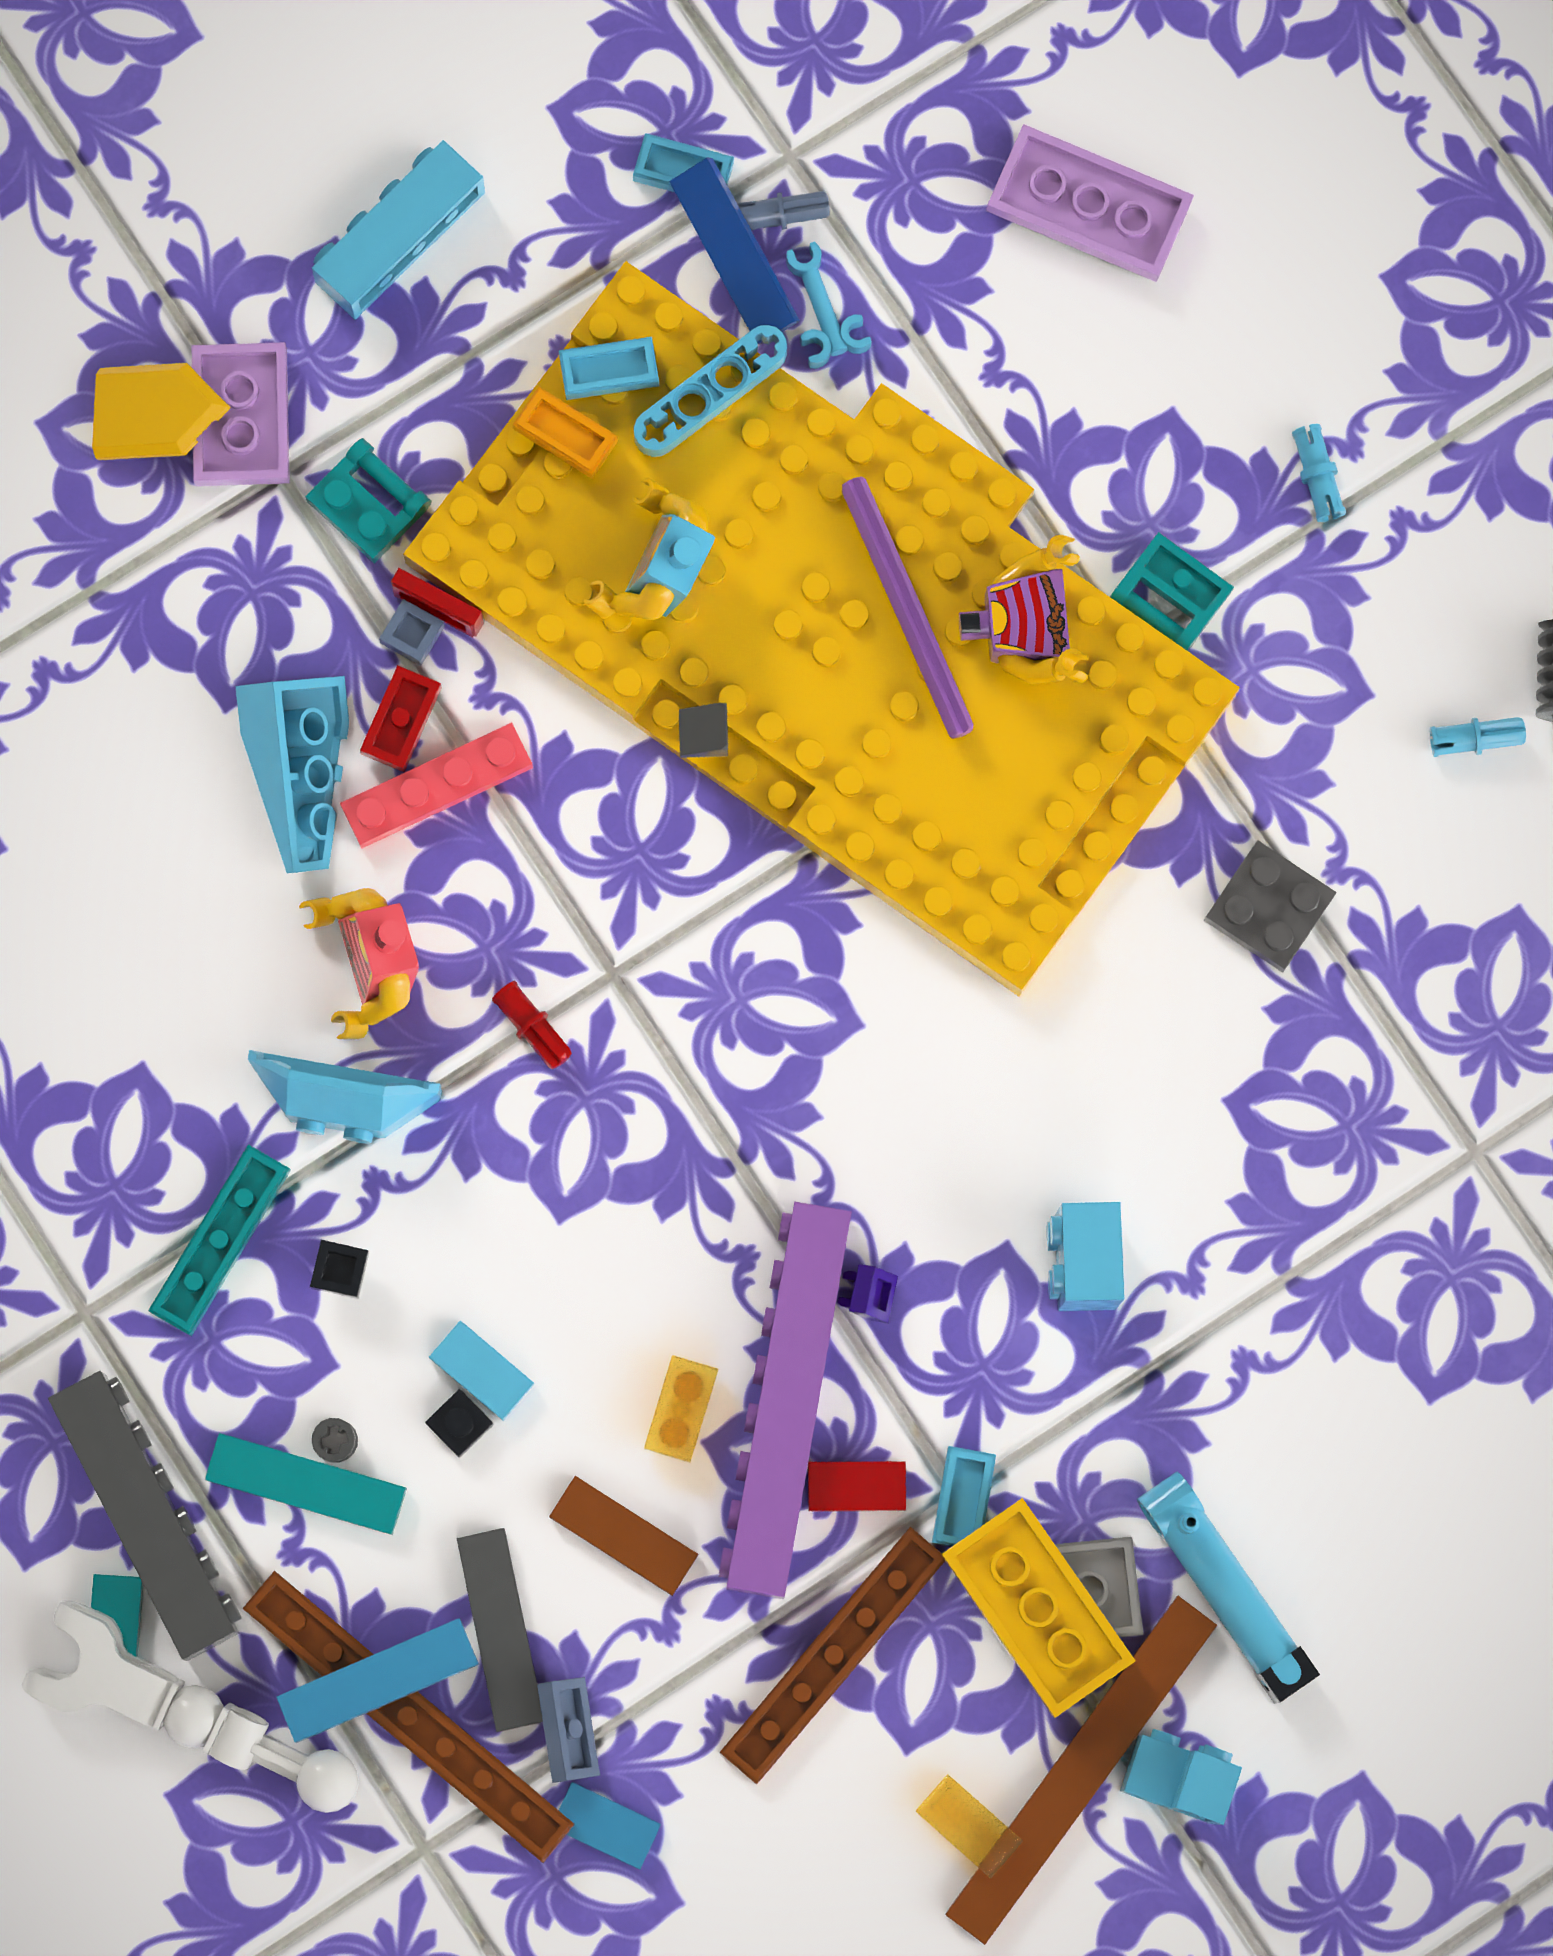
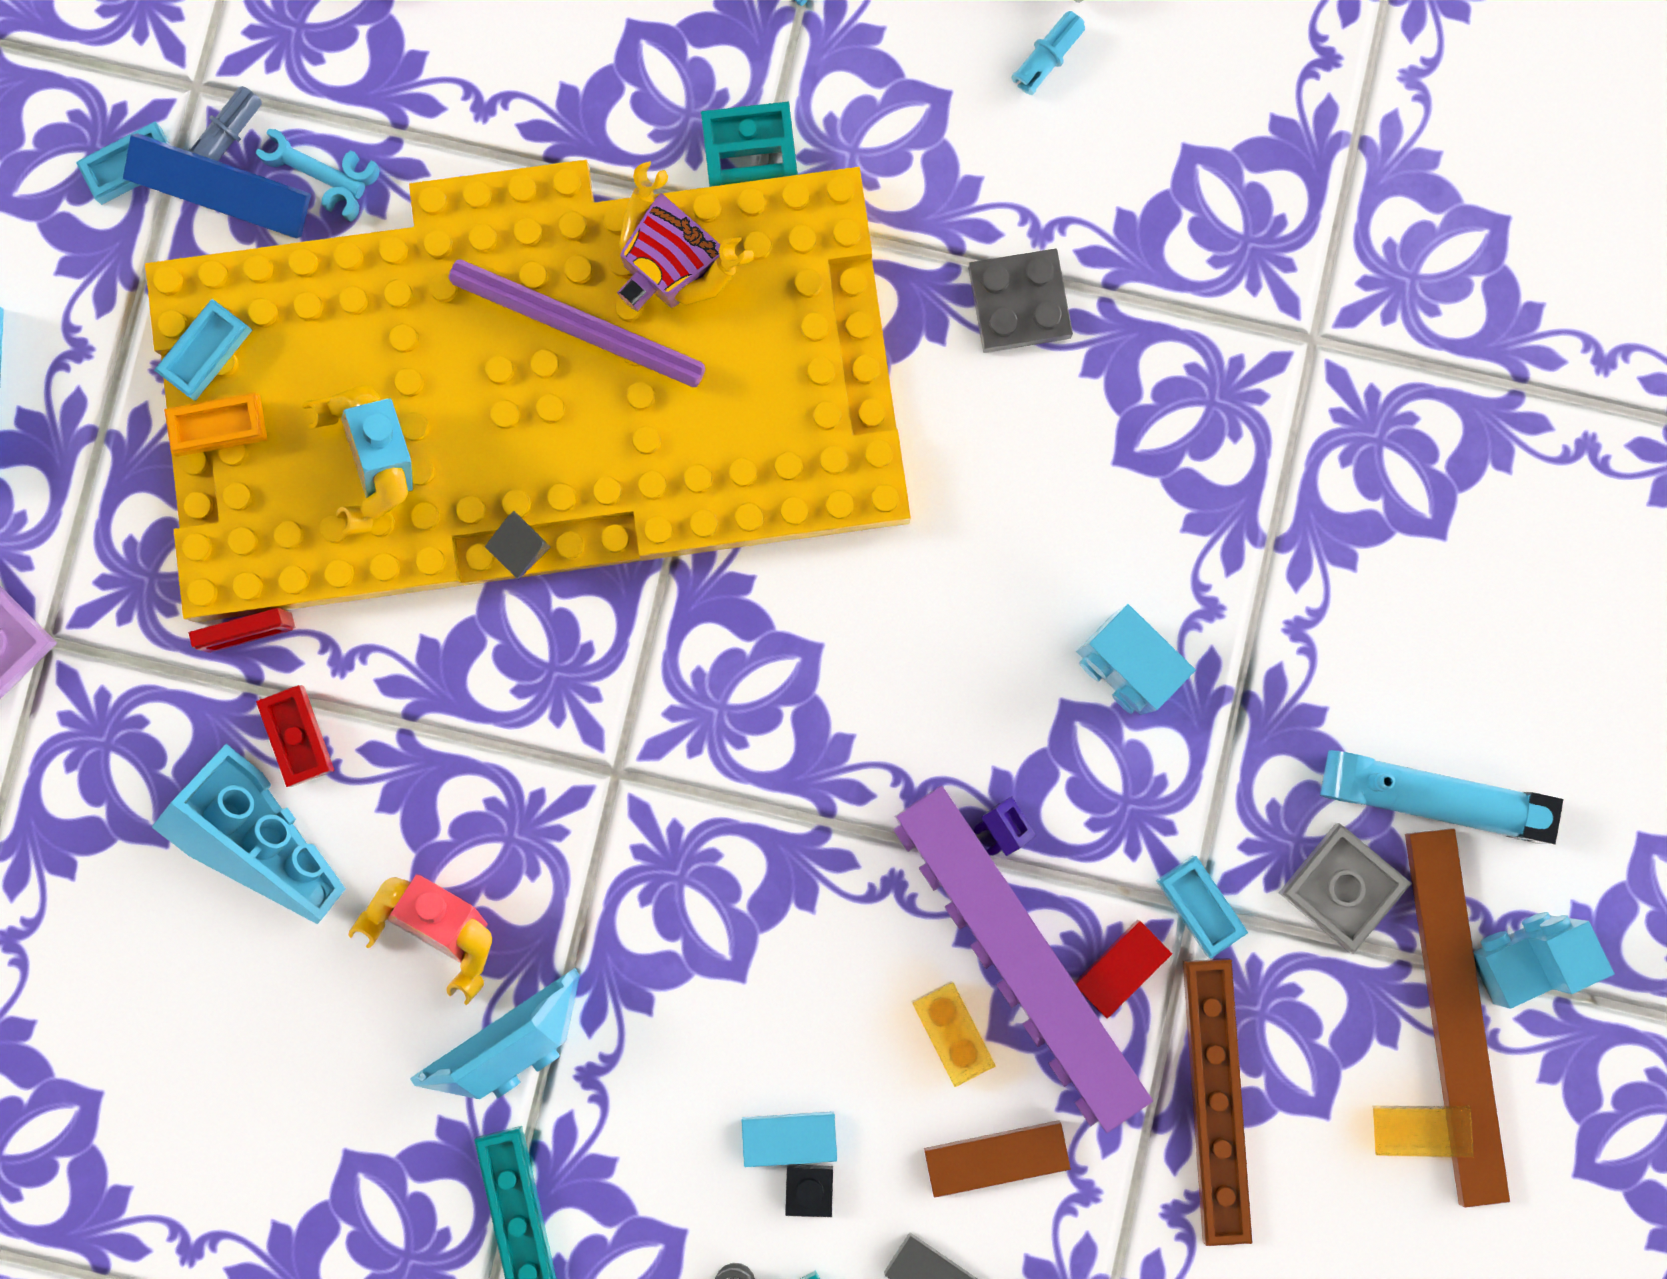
camera: 40 degrees left, 5 degrees up
(339, 1269) = (623, 1169): black tile -> none
(357, 511) = (125, 618): teal plate -> none
(412, 632) = (244, 667): sand blue plate -> none
(436, 785) = (365, 759): coral plate -> none
(532, 1025) = (594, 864): red axle -> none
(706, 386) = (284, 298): medium azure beam -> none
(1038, 1608) = (1330, 937): yellow plate -> none

